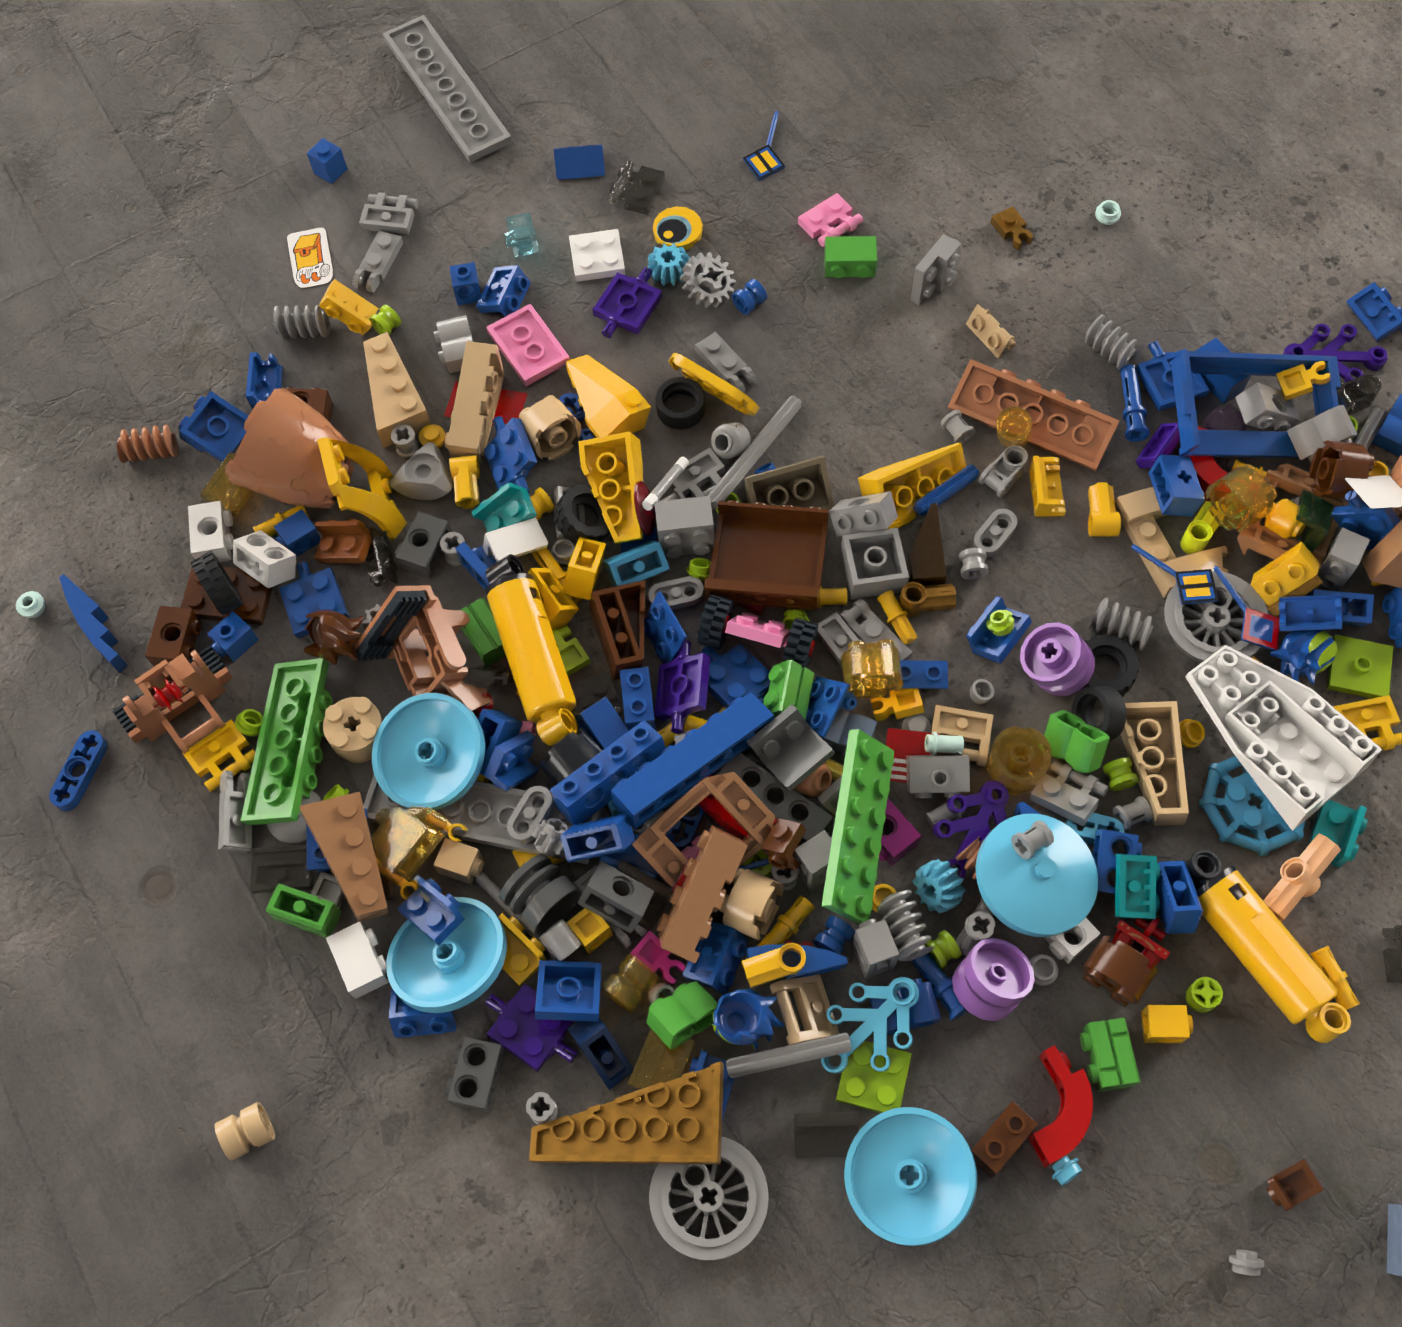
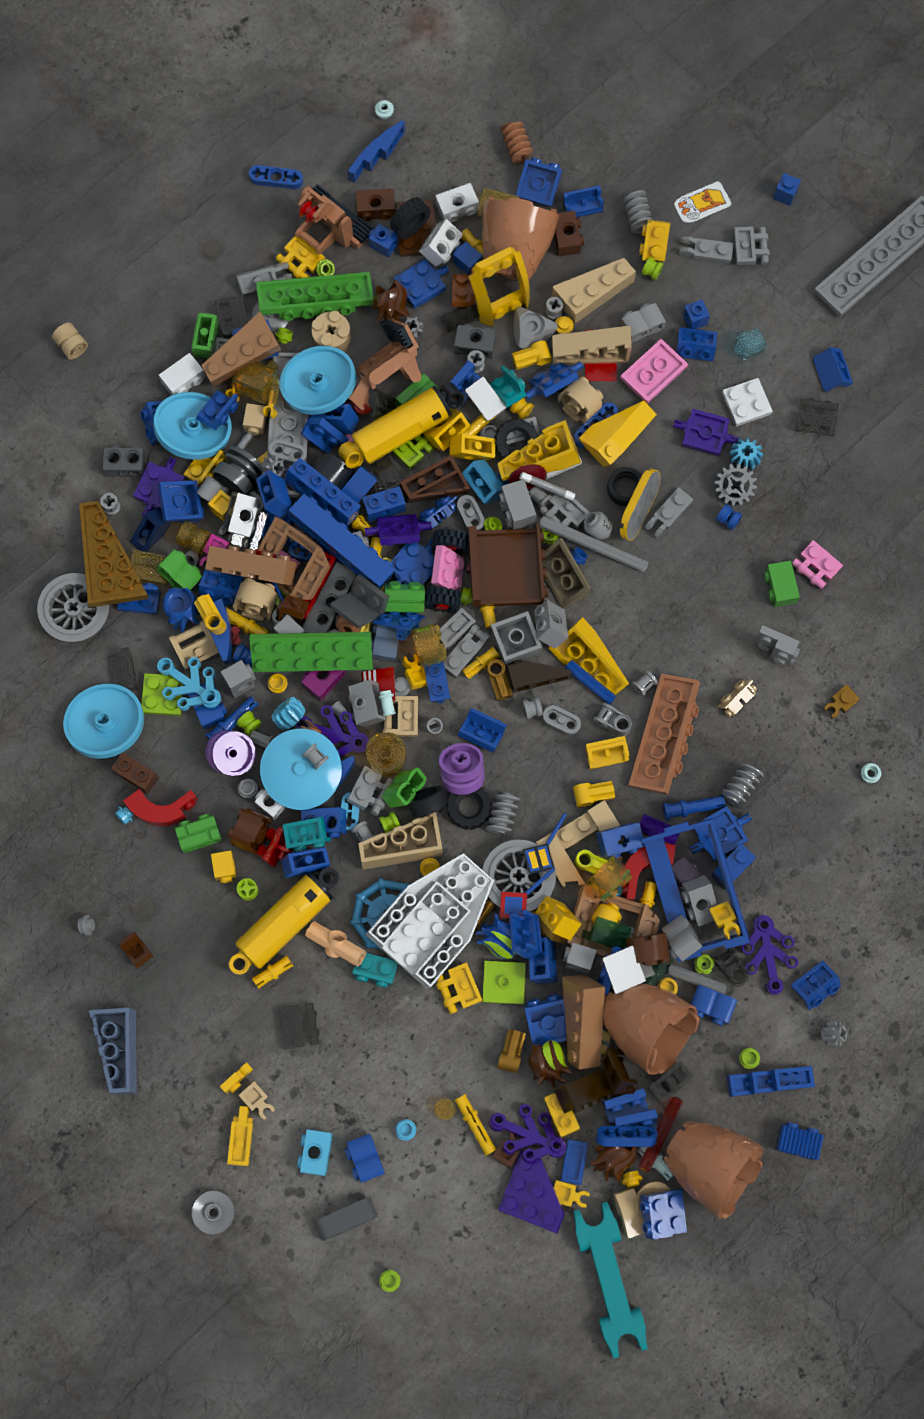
camera: 75 degrees right, 10 degrees up
(678, 226) = (784, 454): tile -> none
(764, 160) = (866, 506): piece -> none
(788, 1055) = (162, 637): light grey axle -> none
(903, 925) = (254, 693): light grey piece -> none
(989, 928) = (257, 740): light grey bush -> none
(1000, 622) = (483, 732): lime plate -> none
(1014, 427) = (644, 718): clear yellow wheel -> none

